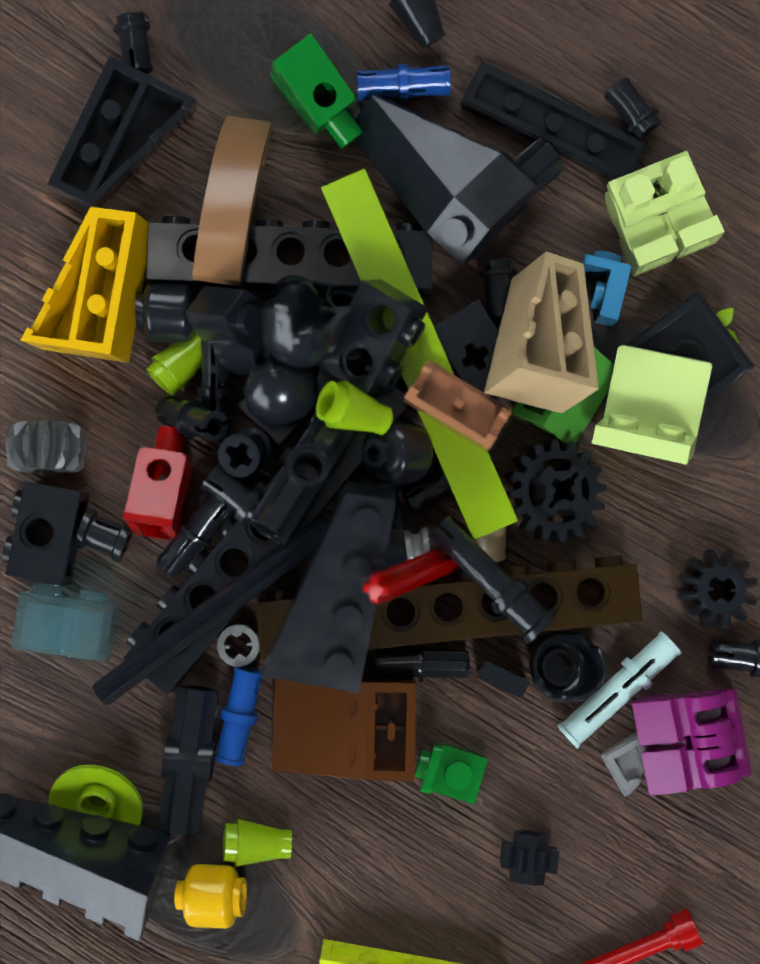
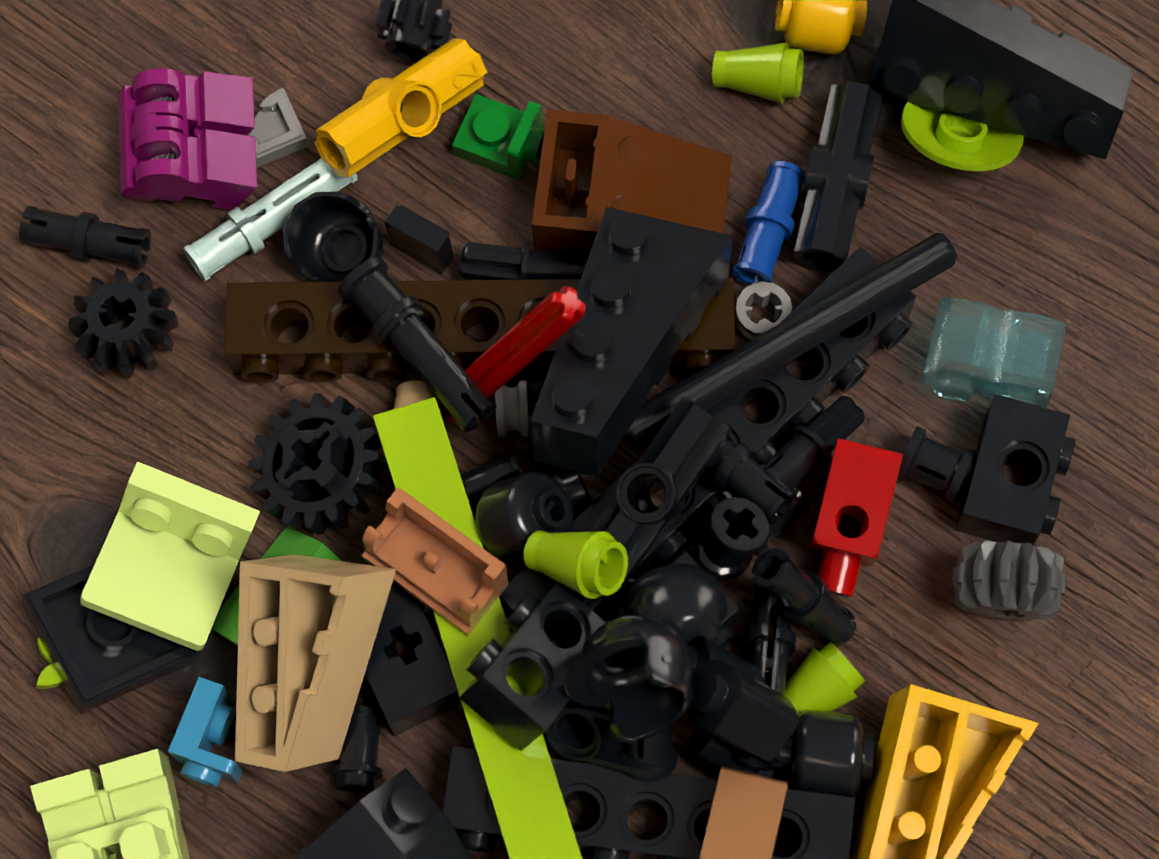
camera: 175 degrees left, 15 degrees down
(529, 781) = (375, 121): none -> yellow piece

